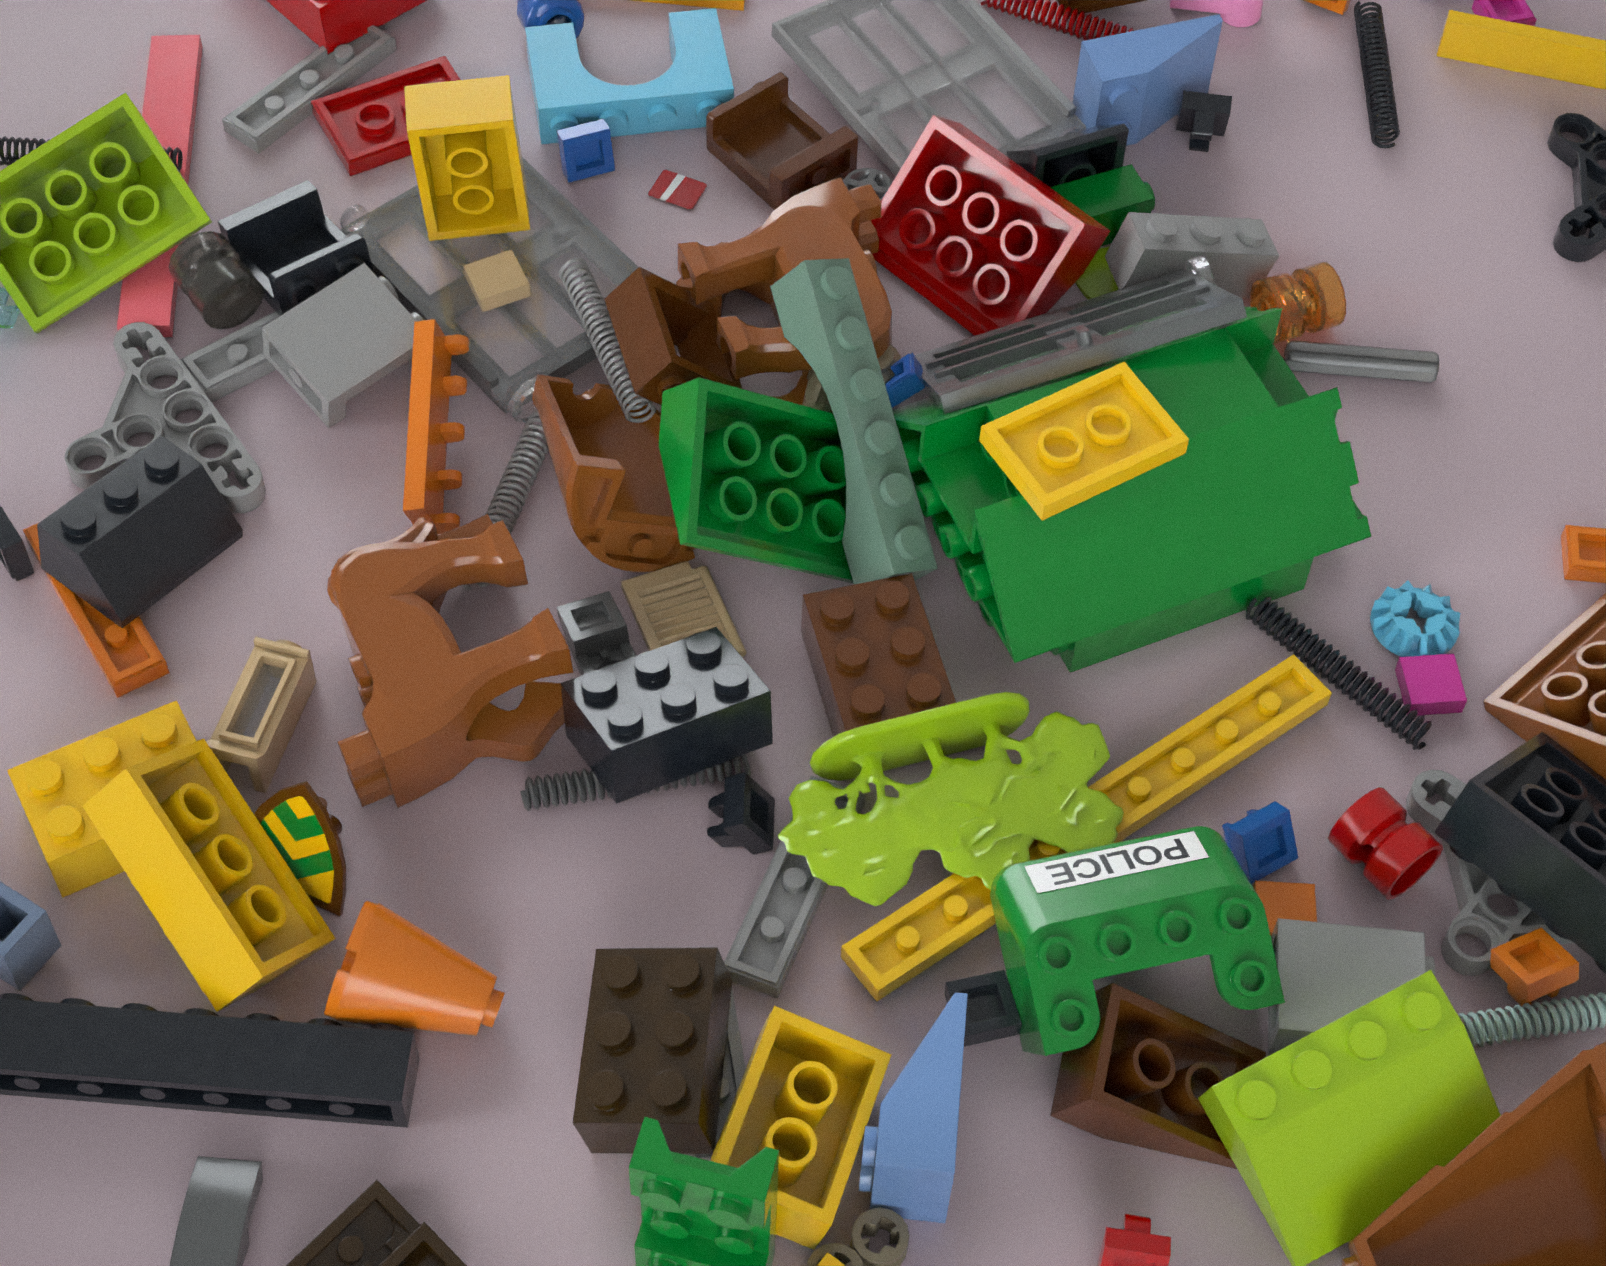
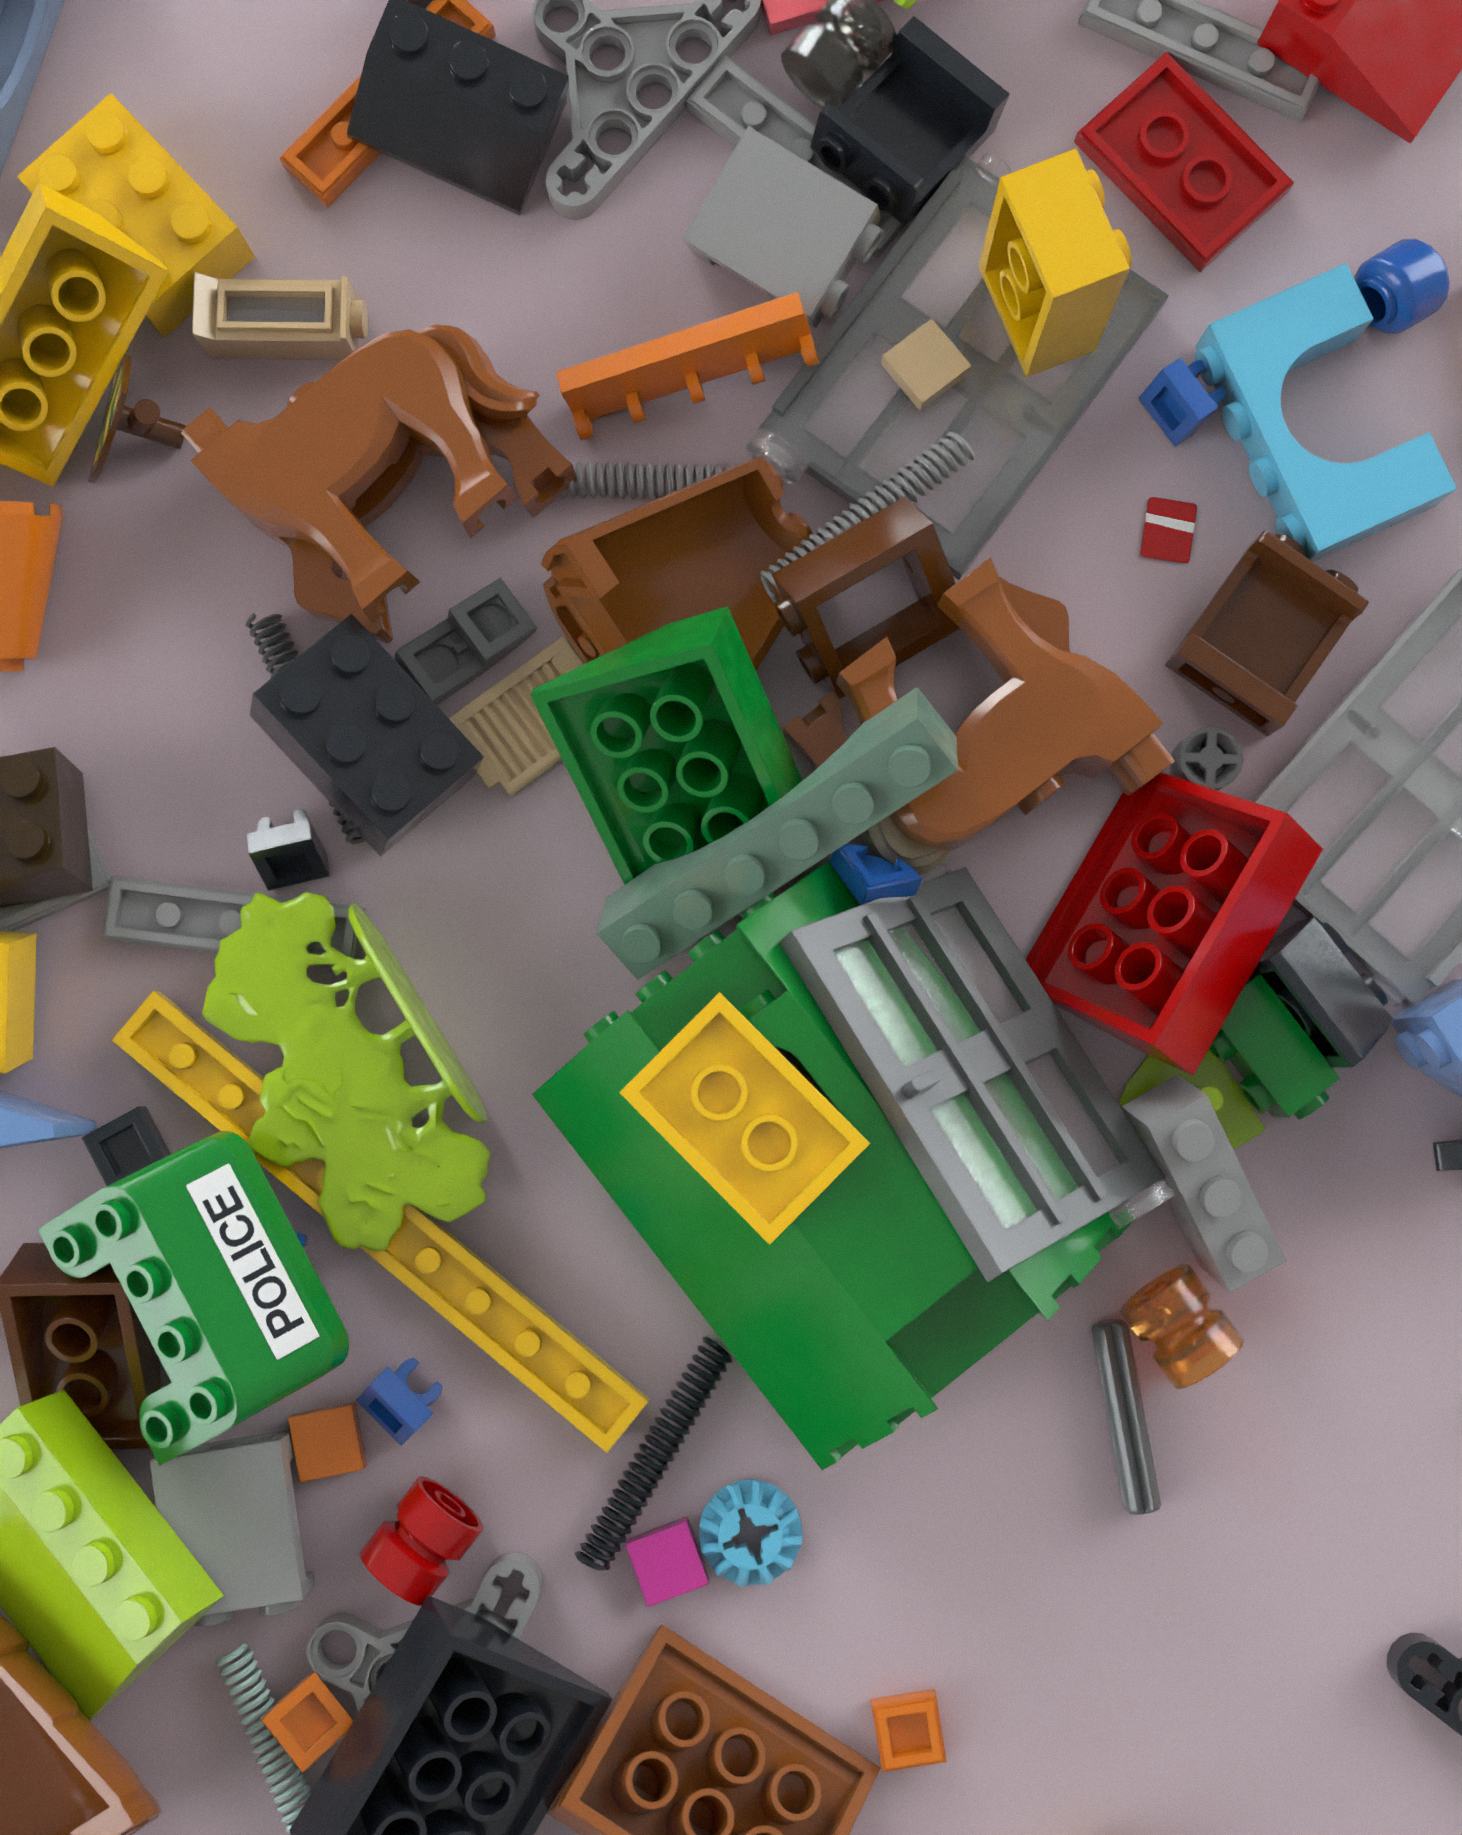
camera: 80 degrees right, 30 degrees up
(873, 652) = (497, 946): reddish brown brick -> none

